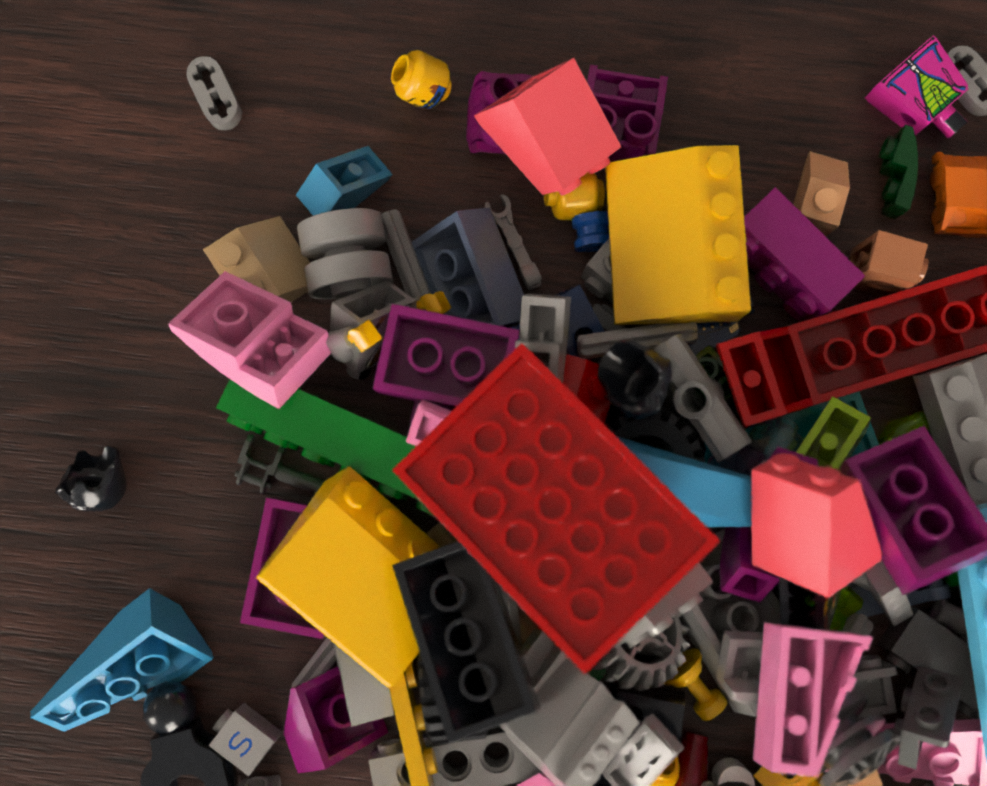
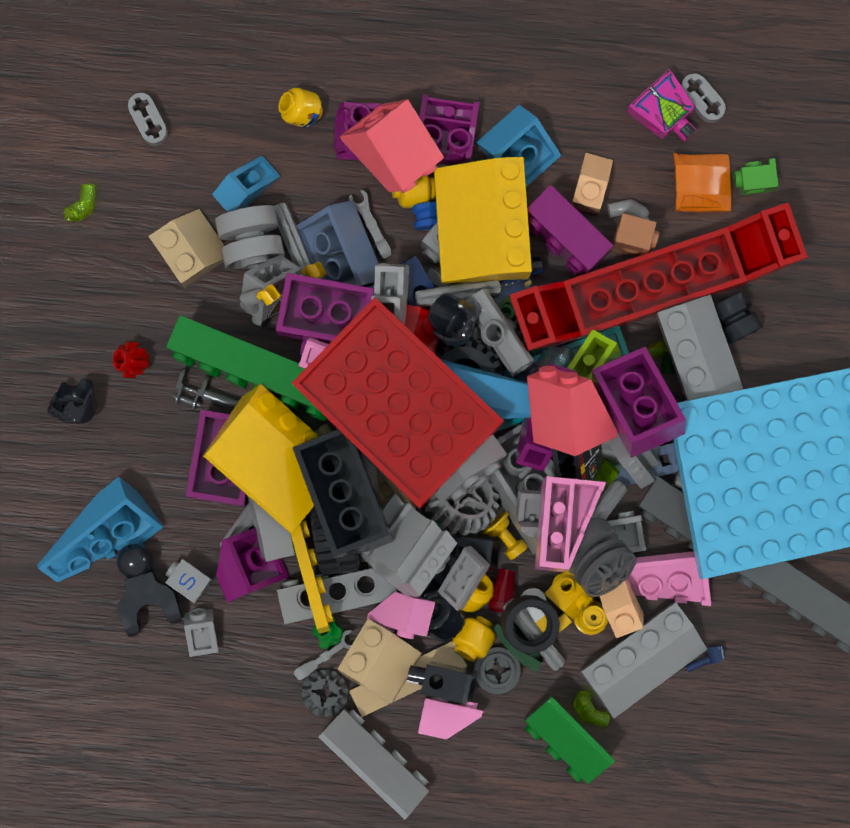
camera: 10 degrees left, 0 degrees up
(121, 209) = (83, 206): none -> clear neon green arm
(175, 421) = (130, 359): none -> red gear
(252, 338) = (190, 298): bright pink slope -> none
(725, 118) = (521, 136): none -> dark azure slope
(864, 227) = (627, 207): none -> light grey arm
(901, 165) = (648, 161): dark green slope -> none
(928, 712) = (656, 544): dark grey bracket -> none

